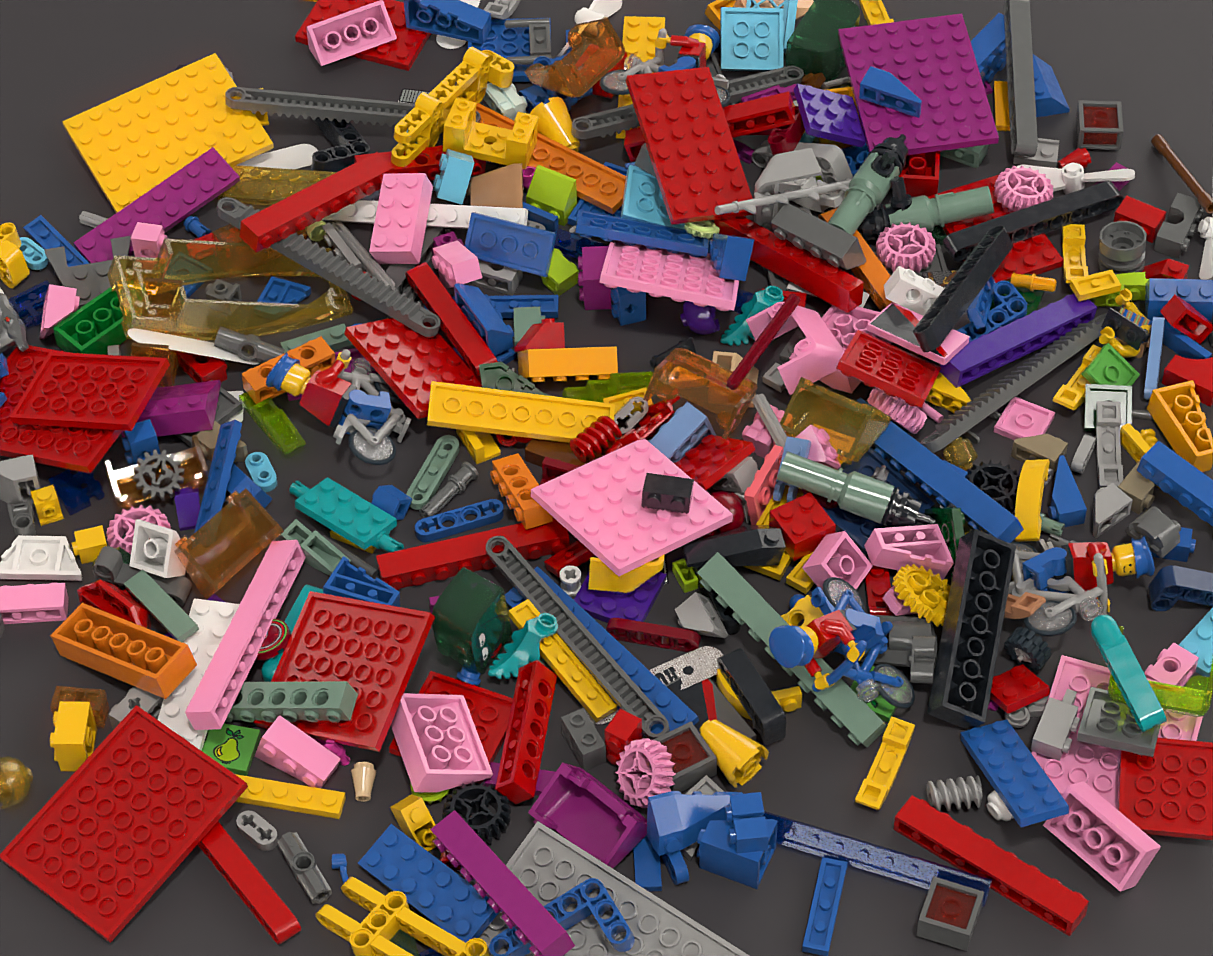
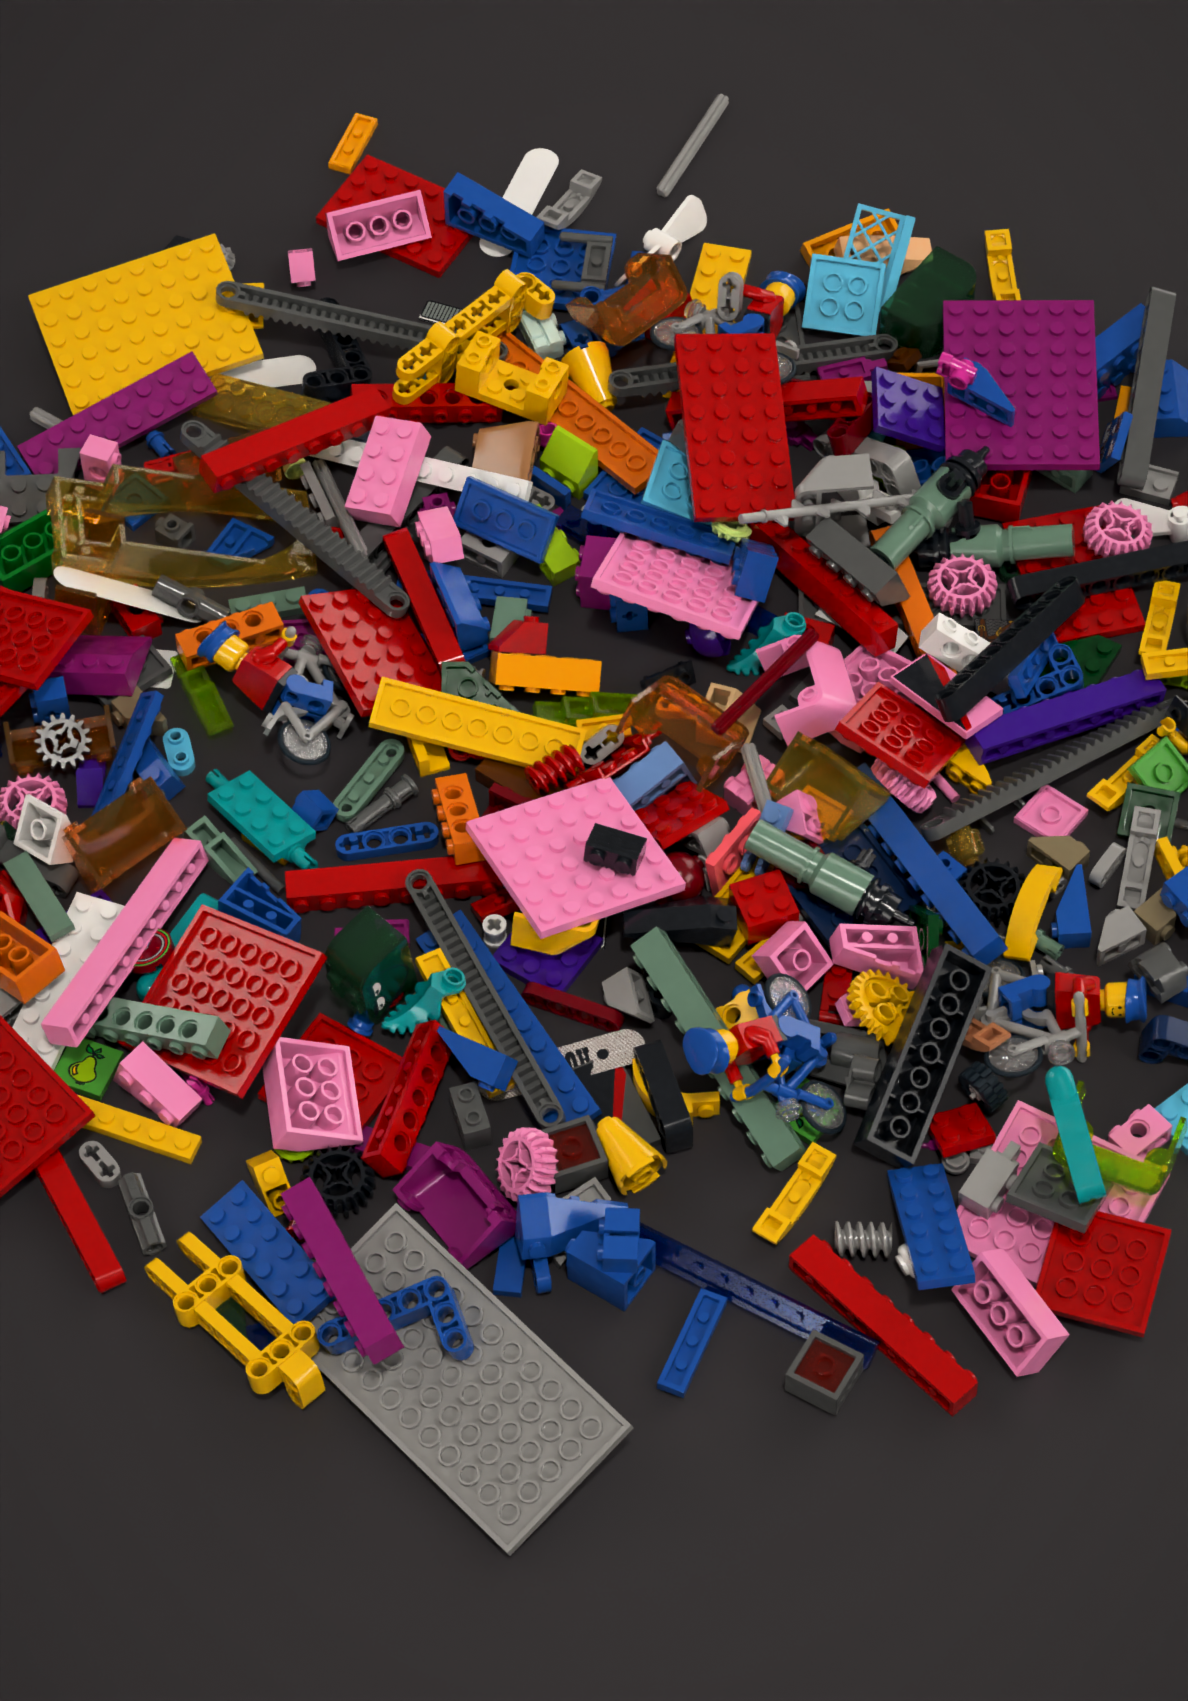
camera: 10 degrees right, 5 degrees up
(291, 74) = (301, 267): none -> bright pink slope
(339, 862) = (181, 1213): blue hand -> none
(363, 780) = (223, 1125): tan cone -> none
(454, 176) = (461, 423): medium azure brick -> none
(589, 690) = (480, 1062): none -> blue slope
(620, 732) = (510, 1114): red brick -> none
(657, 45) = (724, 296): none -> light grey beam
(685, 576) = (622, 944): lime piece -> none
(870, 77) = (959, 372): none -> dark pink plate
(1004, 119) = (1114, 440): none -> blue tile
(1033, 282) = (1099, 648): light orange axle -> none

